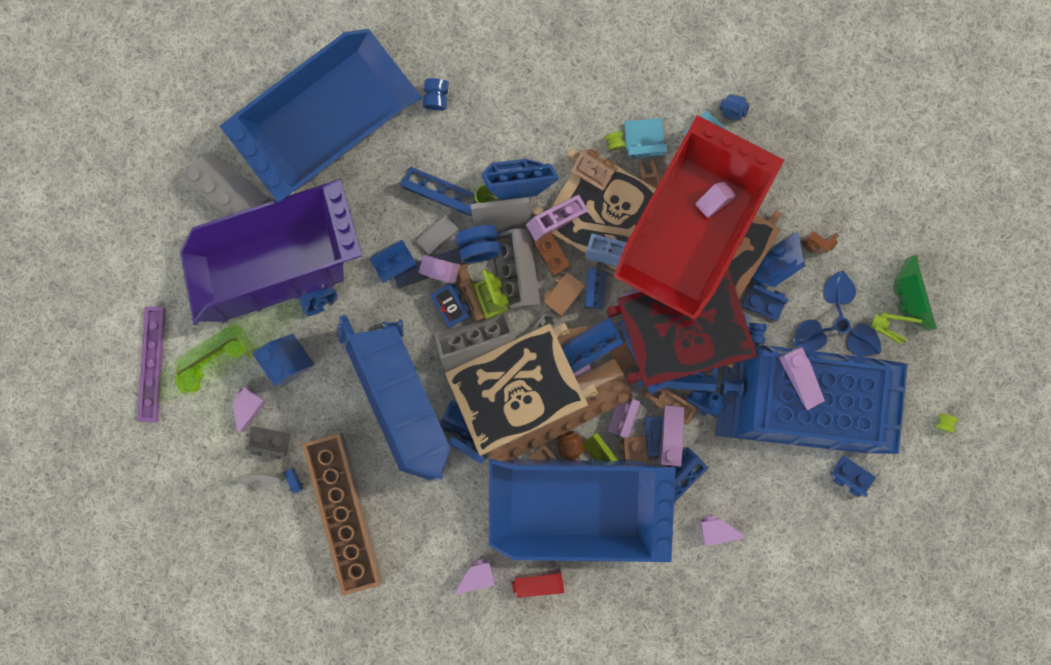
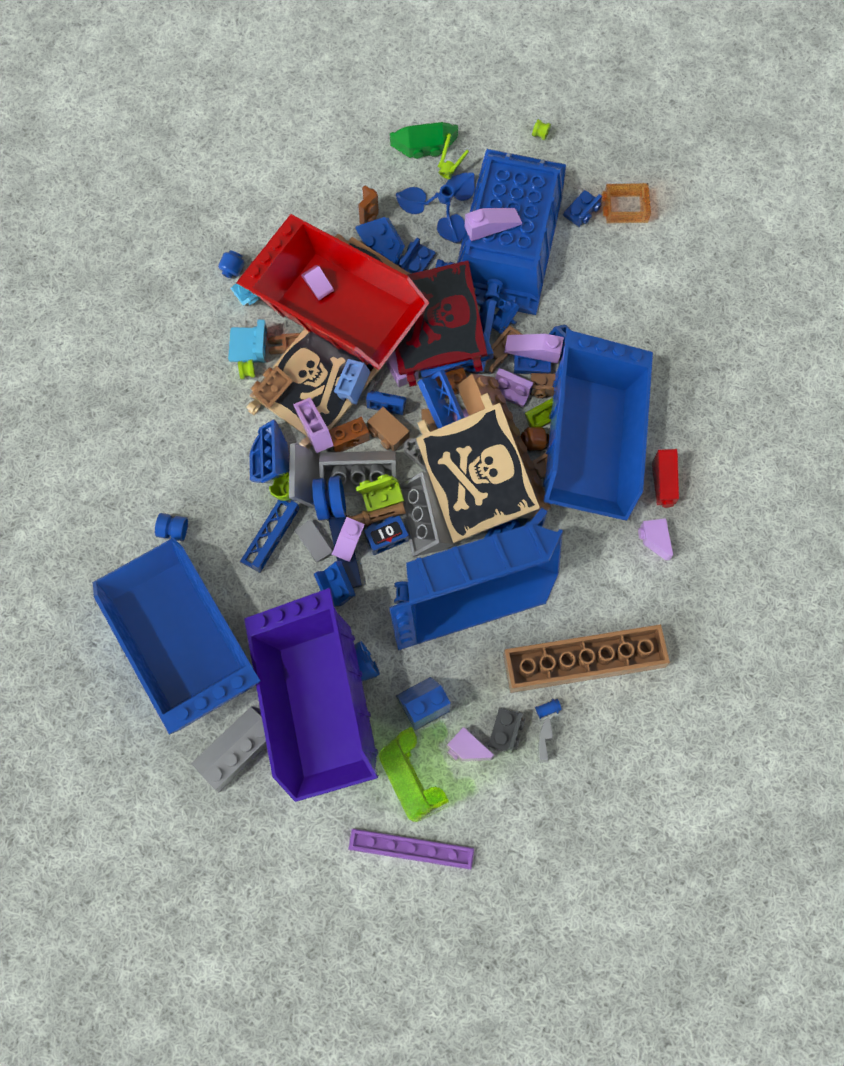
camera: 85 degrees left, 15 degrees down
(717, 531) = (625, 321): lavender slope -> none
(870, 544) = (627, 190): none -> clear orange window

